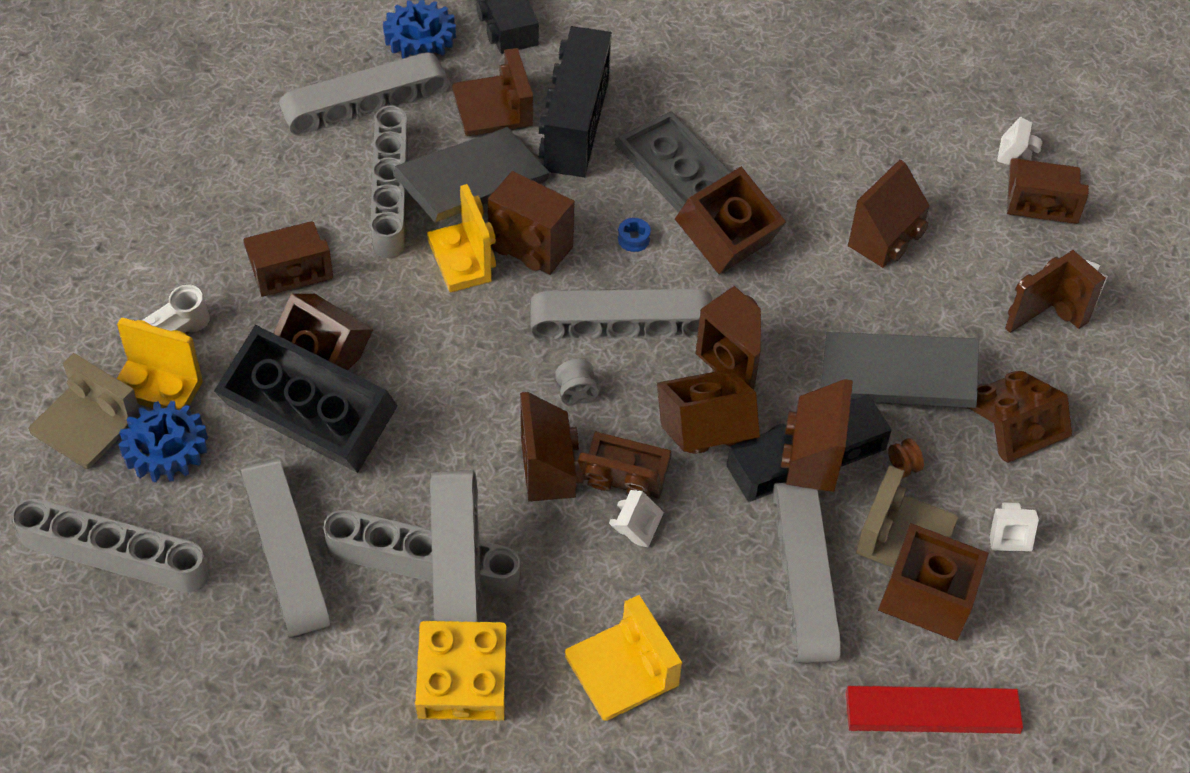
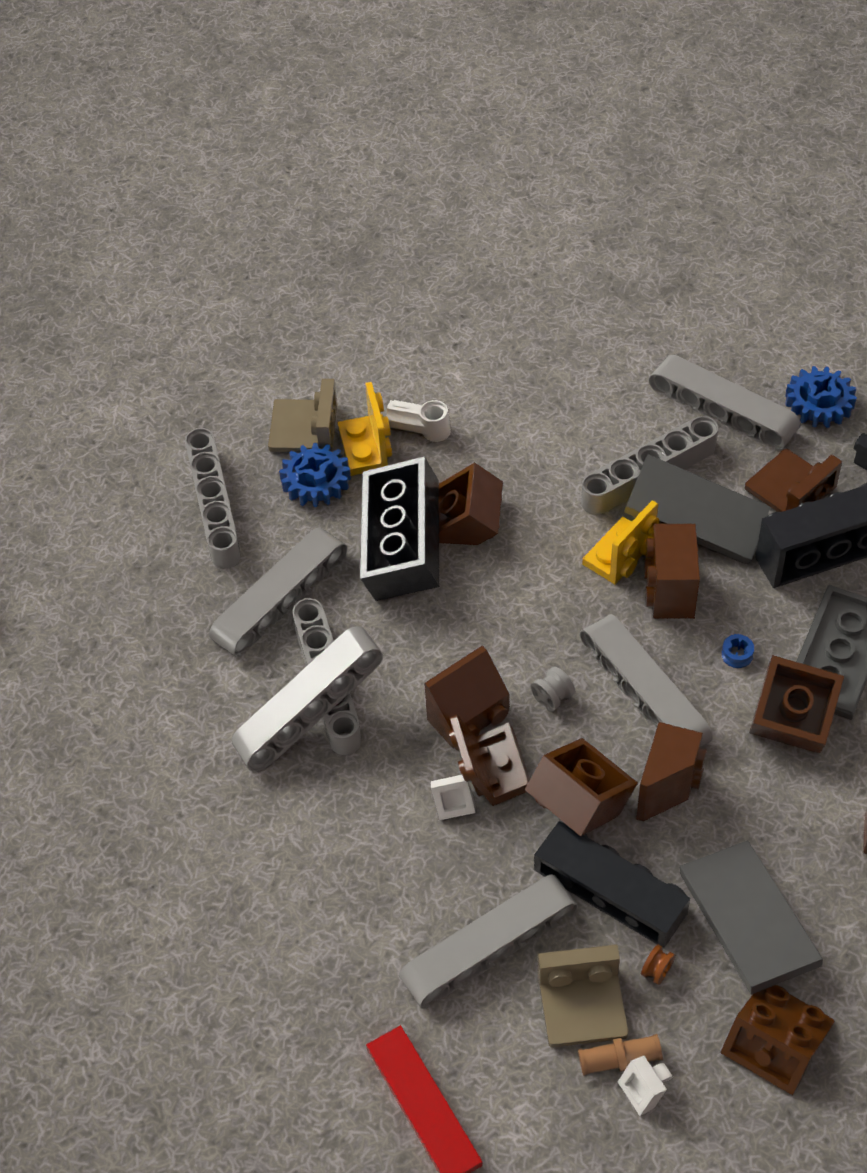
camera: 65 degrees right, 0 degrees up
(288, 258) = (526, 449): reddish brown bracket -> none
(461, 670) = (235, 747): yellow bracket -> none
(626, 662) = (319, 855): yellow bracket -> none
(818, 437) = (597, 875): reddish brown slope -> none
(934, 582) = (537, 1040): reddish brown slope -> none
(974, 527) = (619, 1054): none -> medium nougat pin

